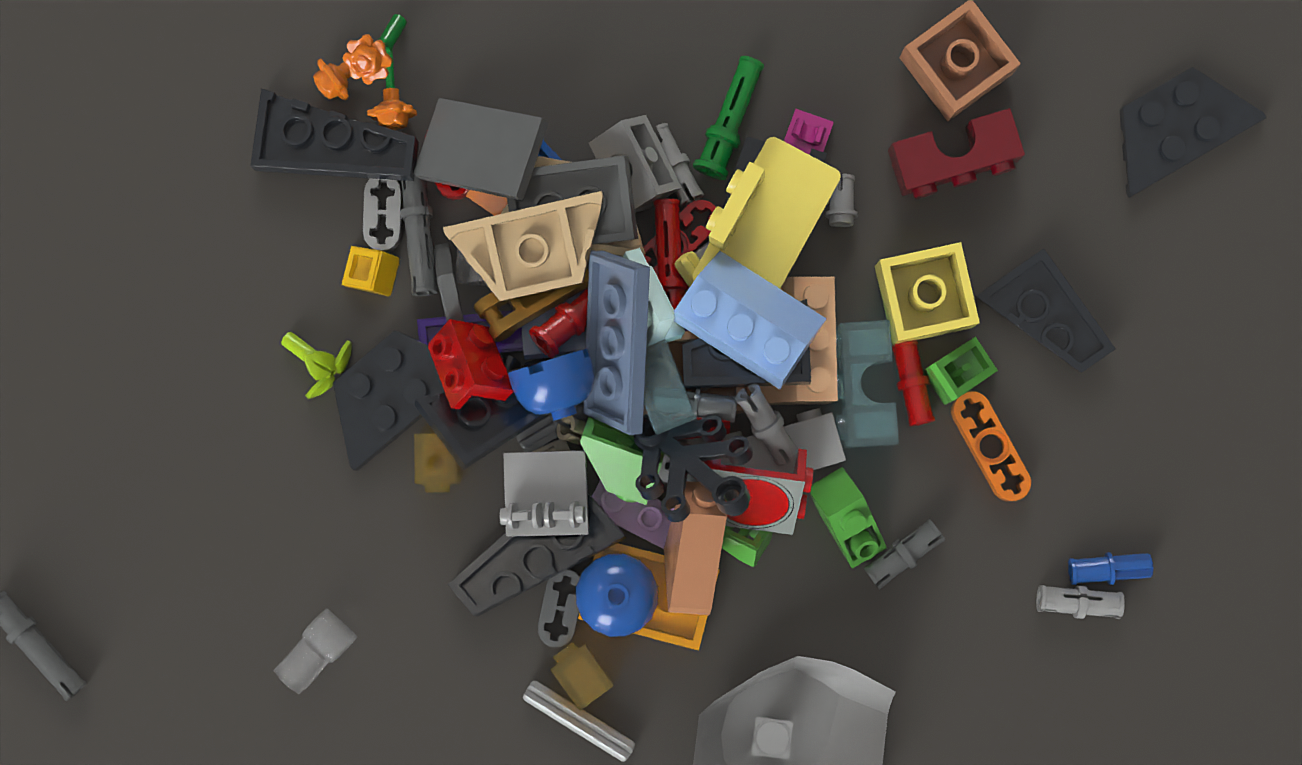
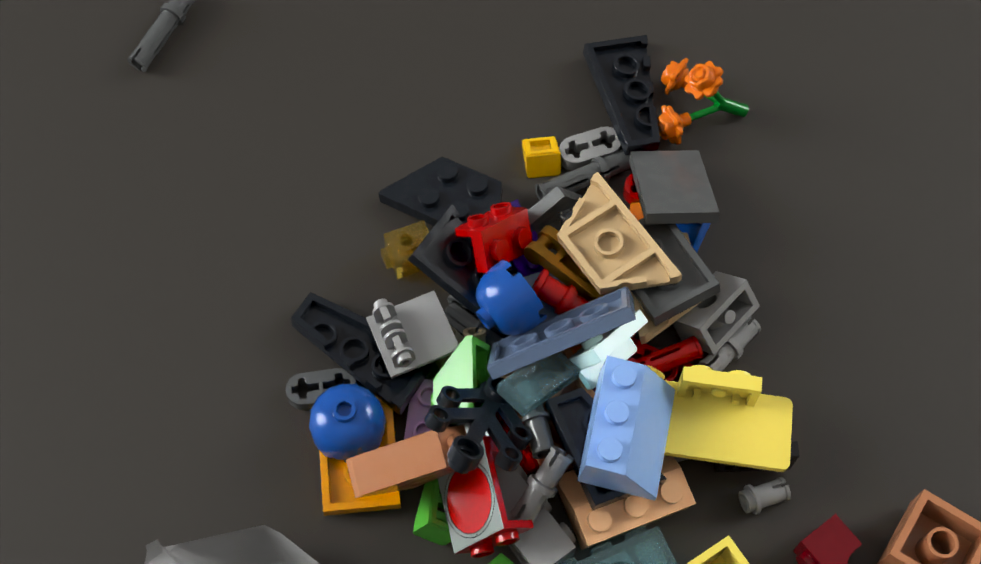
camera: 70 degrees right, 20 degrees down
(319, 364) = (452, 137): lime plant -> none
(321, 644) = (230, 218): clear piece -> none
(579, 721) = (229, 438): light grey axle -> none
(581, 674) = (268, 422): clear yellow brick -> none
(724, 135) = (808, 378): green pin -> none
(808, 131) = (811, 447): dark pink tile -> none

